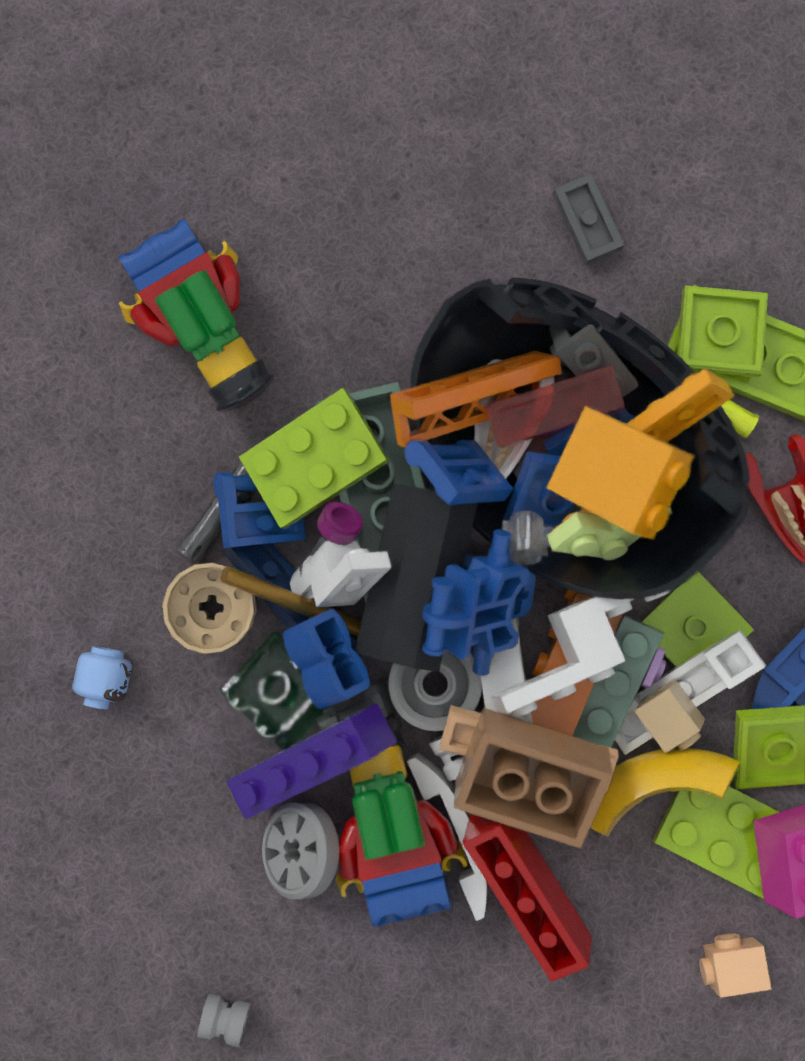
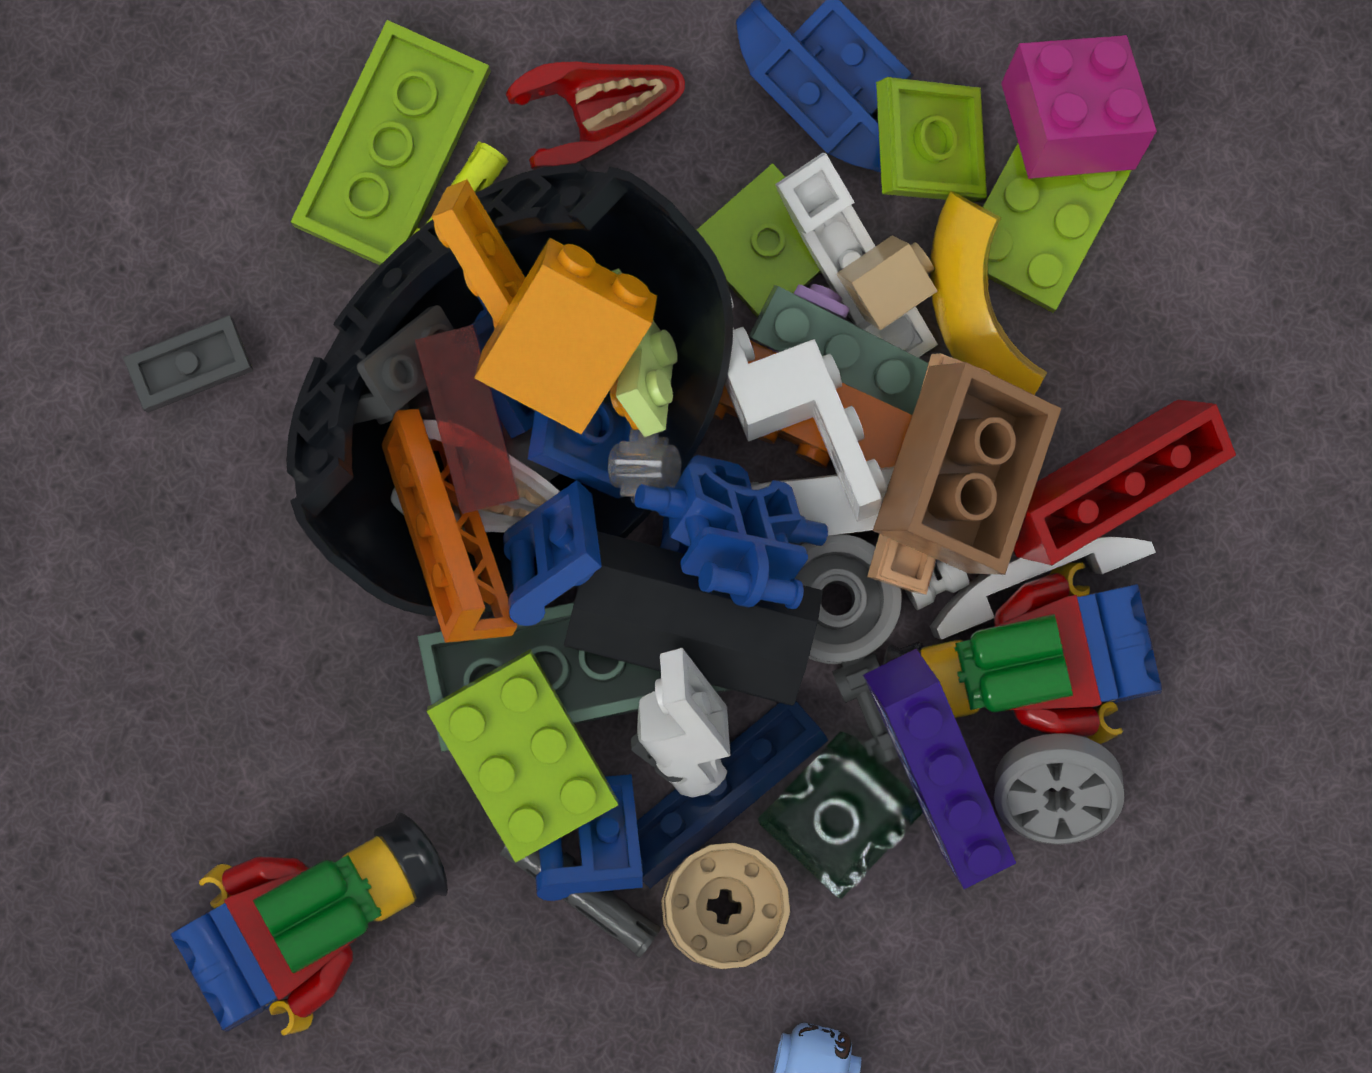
camera: 85 degrees left, 0 degrees up
(221, 1019) = (1283, 902): light grey wheel -> none
(282, 596) = (719, 791): pearl gold bar -> none
(327, 661) = (797, 745): blue brick -> none
(340, 523) = (615, 720): magenta tile -> none
(723, 330) = (360, 186): lime plate -> none
(735, 966) = (1218, 212): light nougat brick -> none

